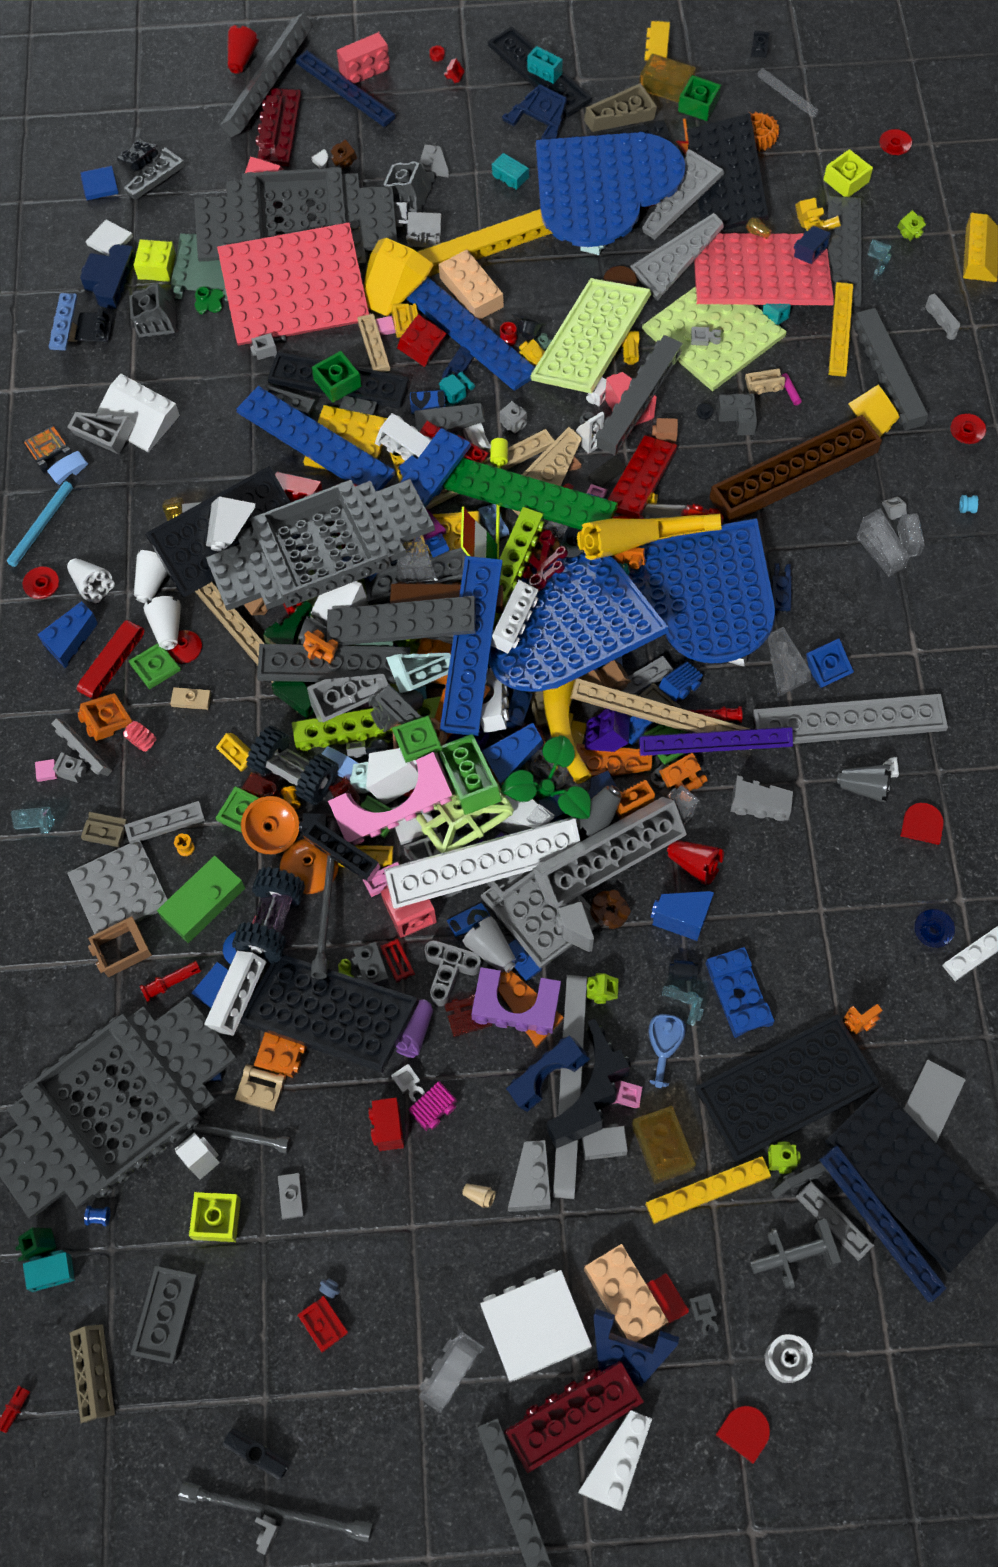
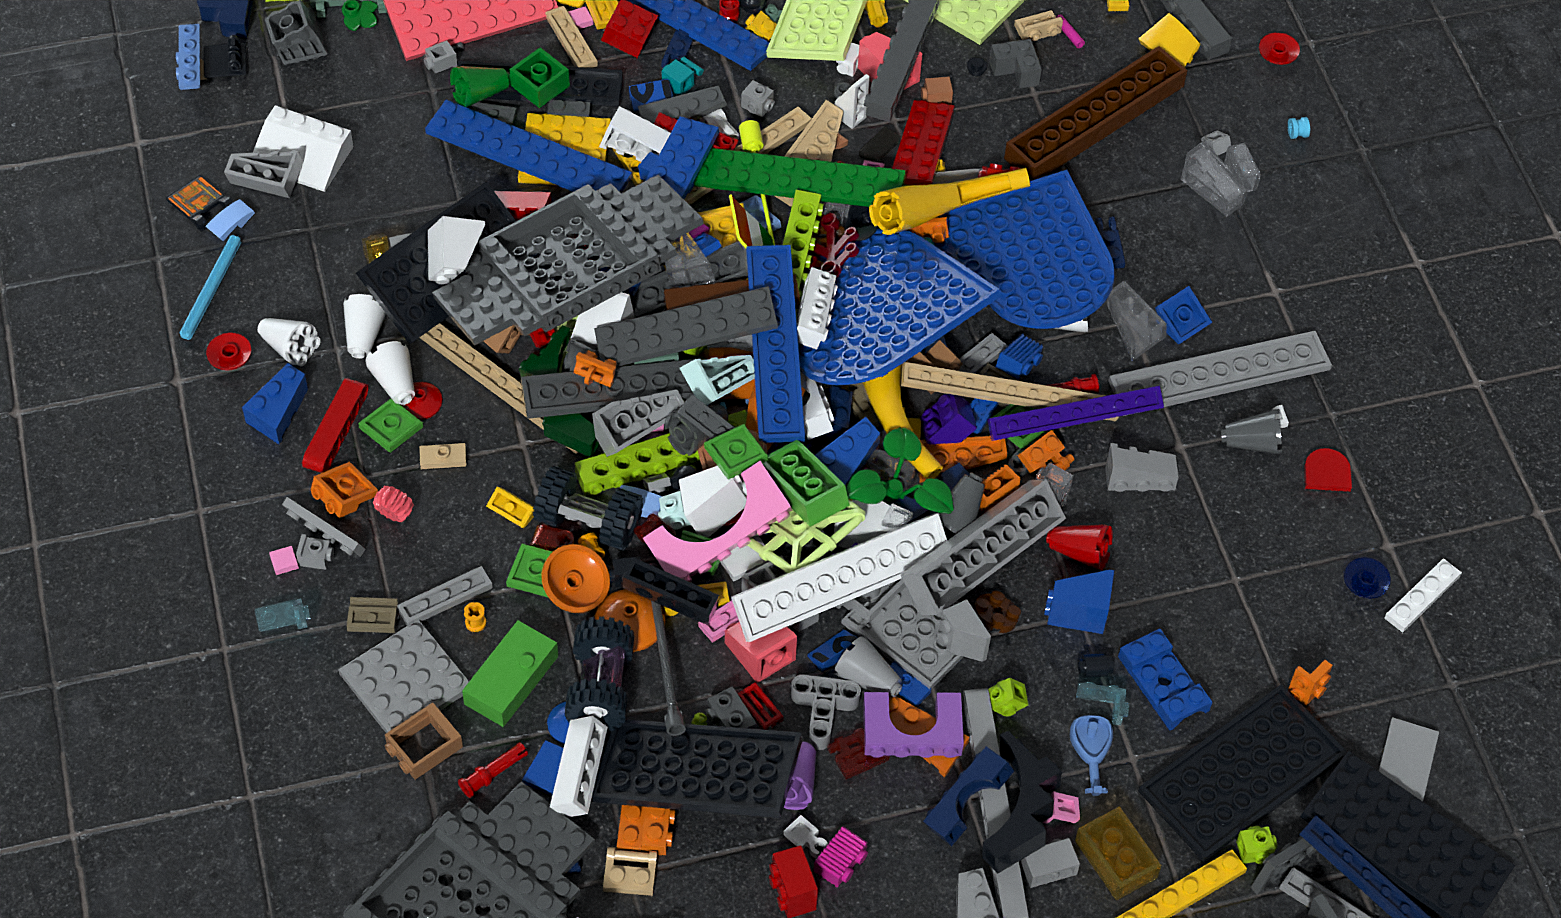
camera: 15 degrees left, 10 degrees down
(286, 375) = (477, 83): none -> green cone

